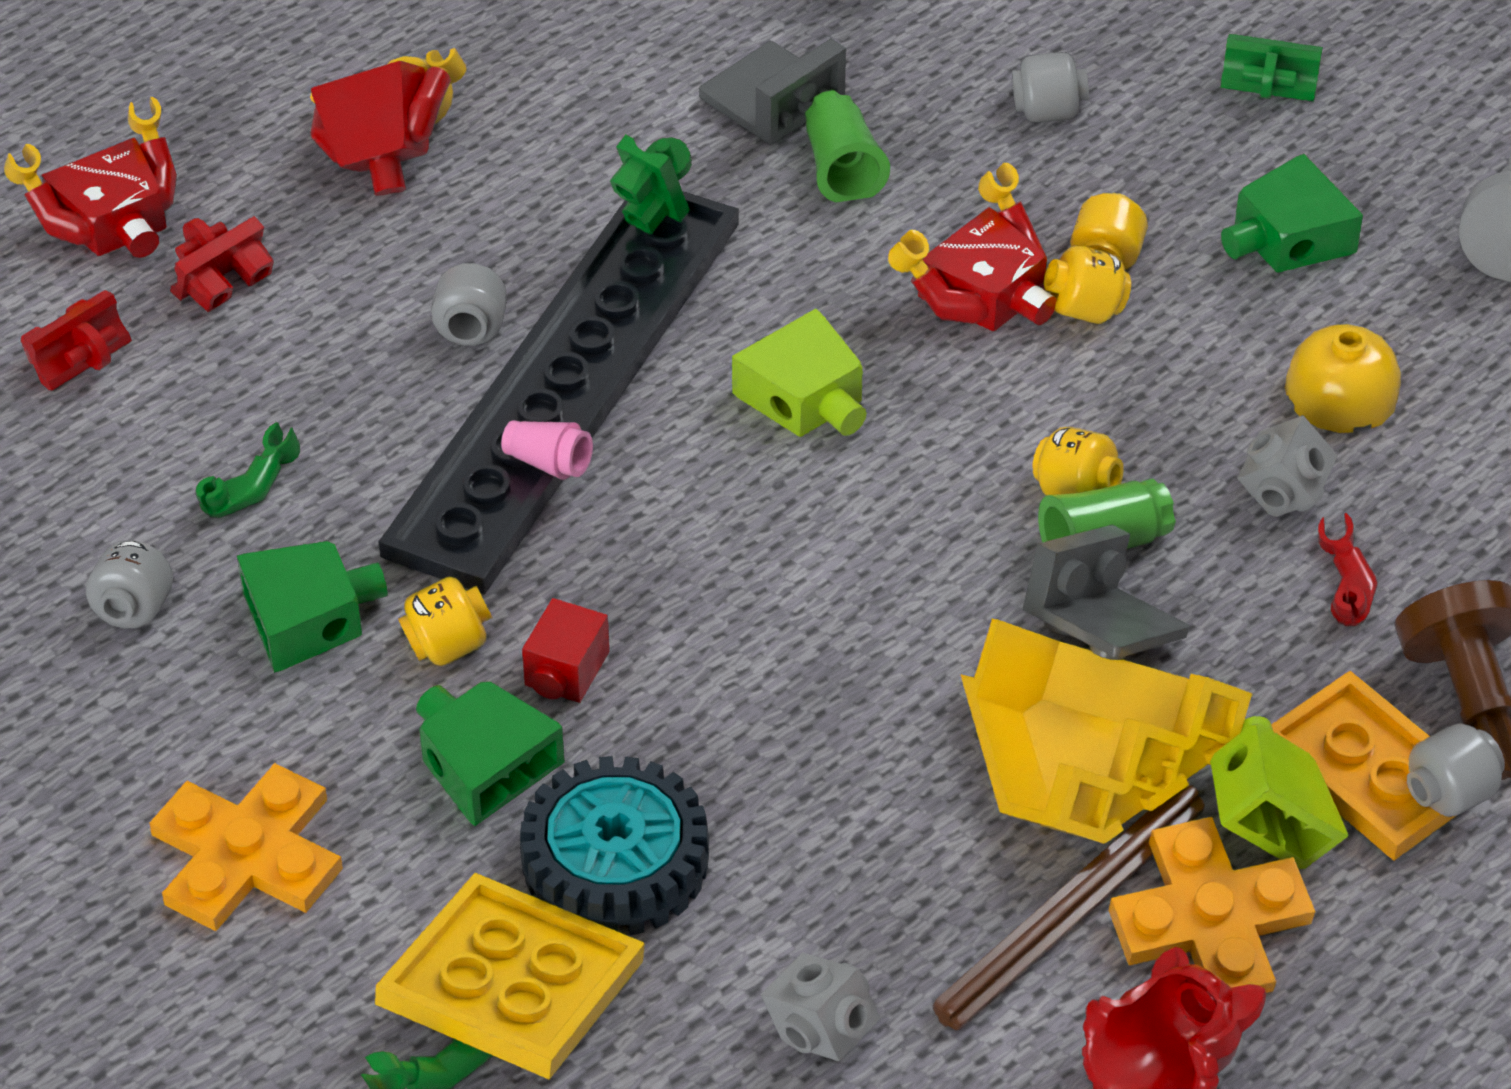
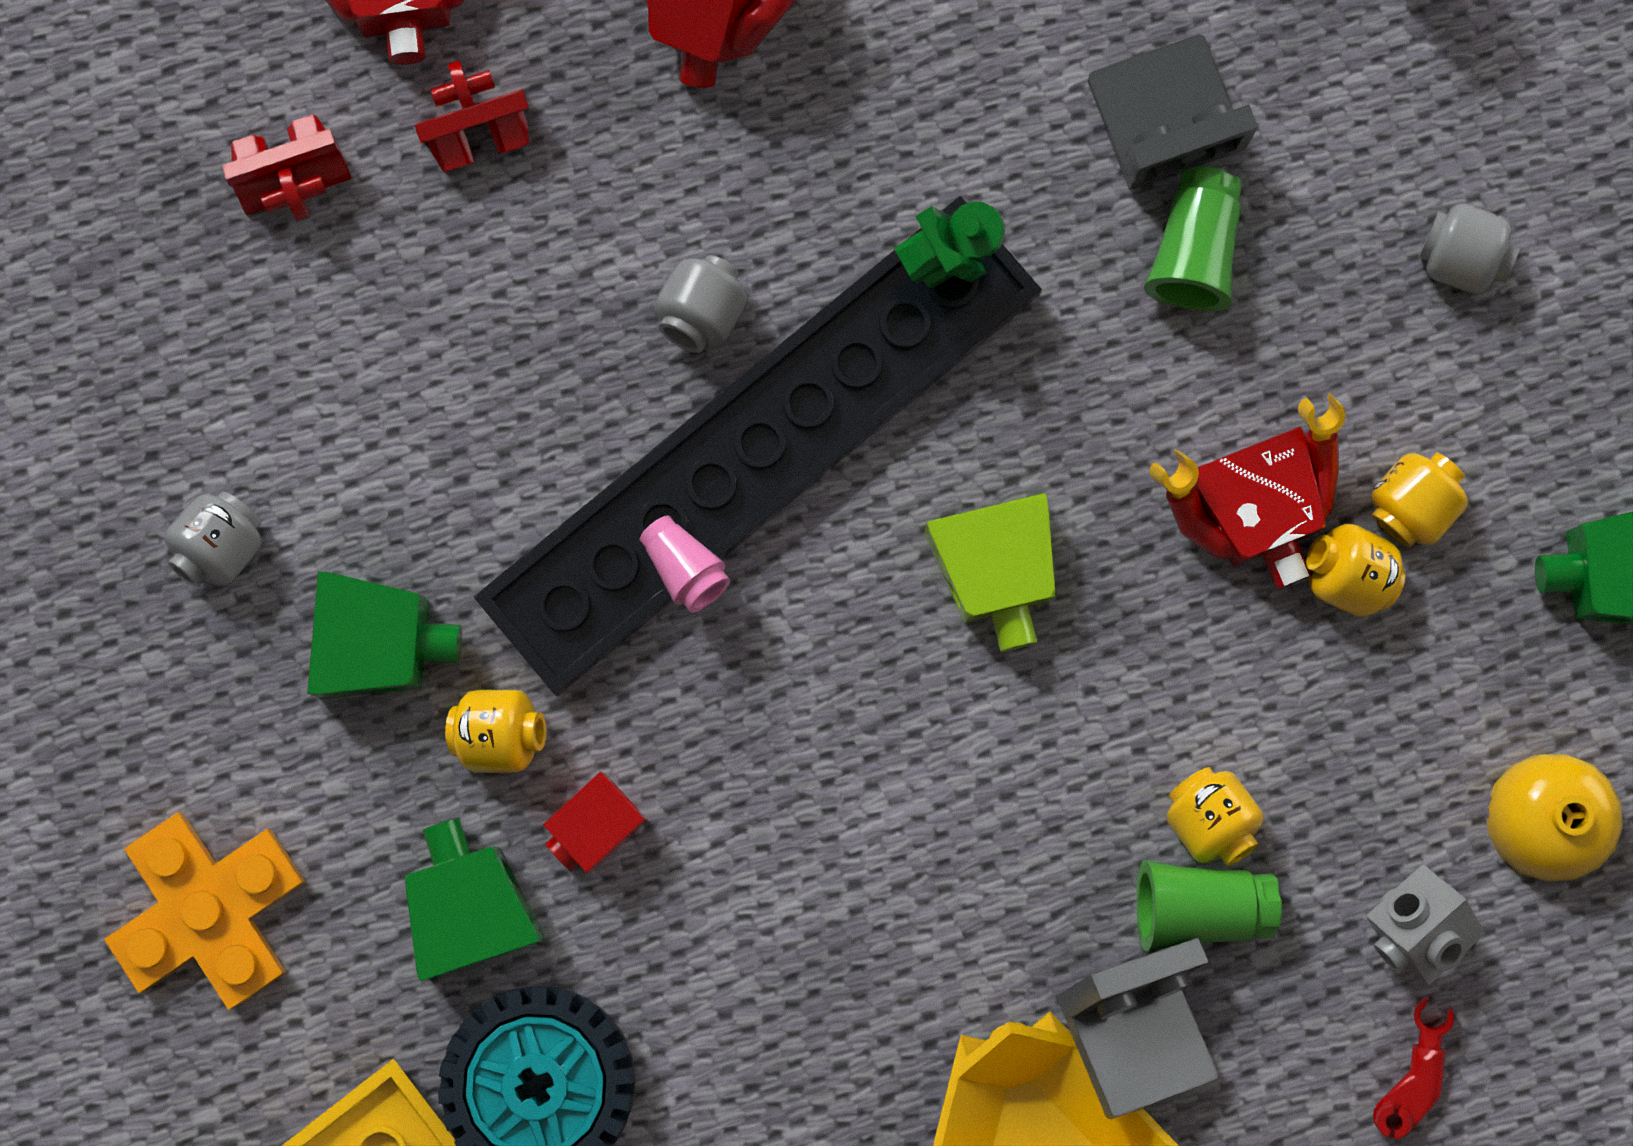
camera: 25 degrees right, 35 degrees up
(222, 498) = (388, 447): green arm -> none

